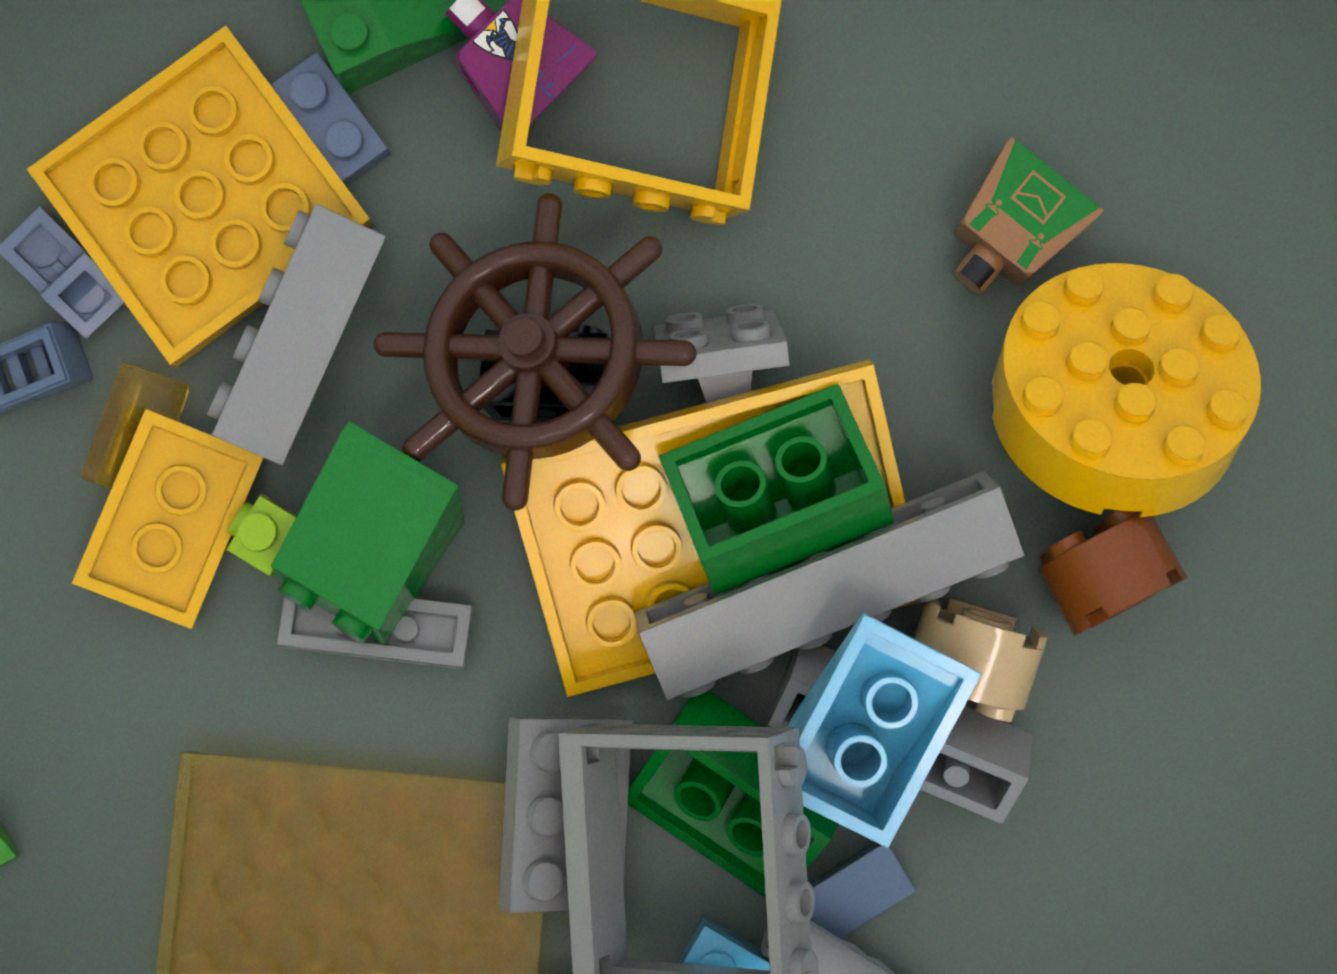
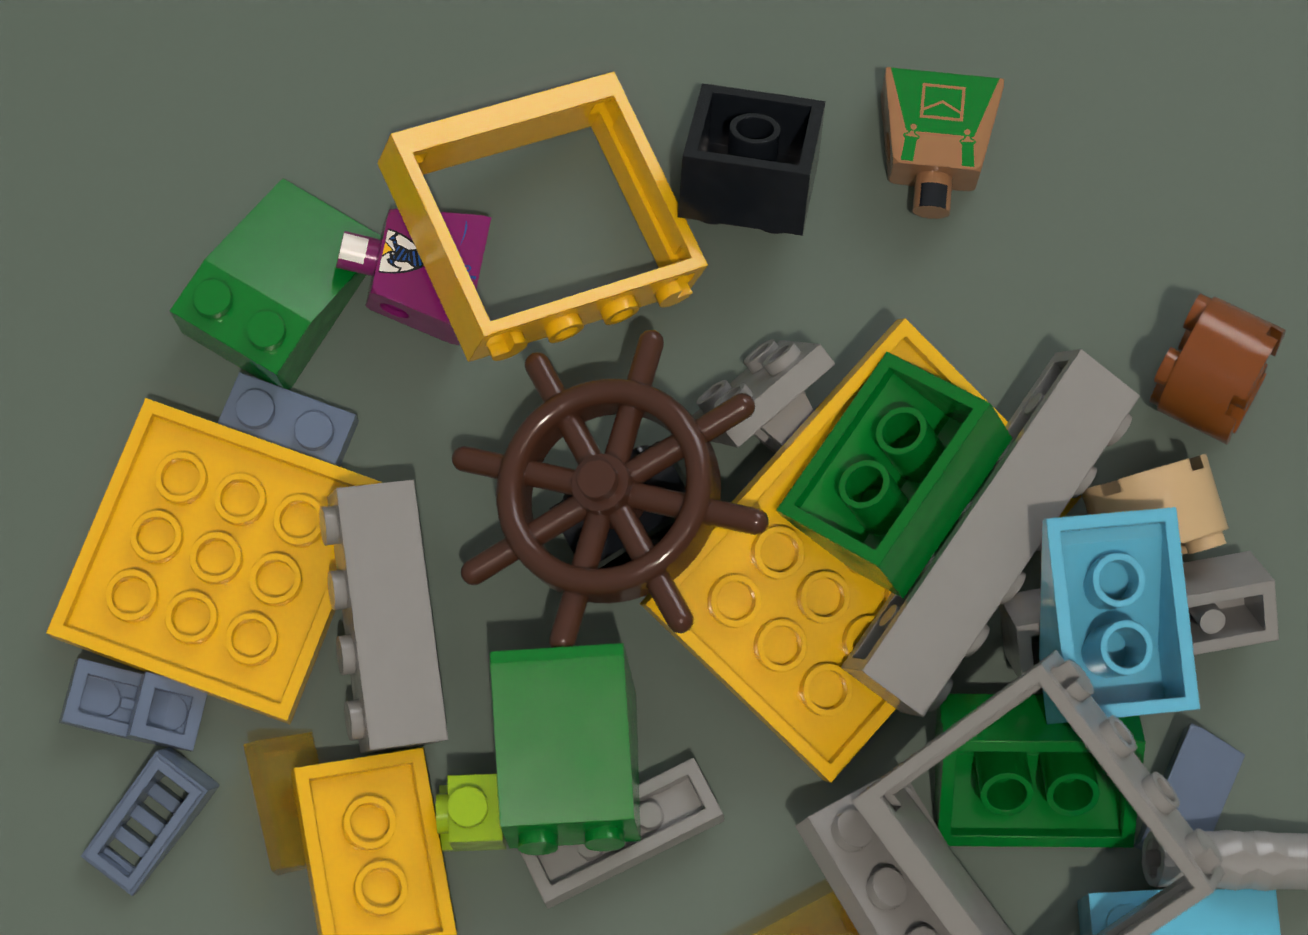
camera: 30 degrees left, 10 degrees down
(844, 143) = (751, 159): none -> black brick
(1124, 389) = (1124, 209): yellow brick -> none

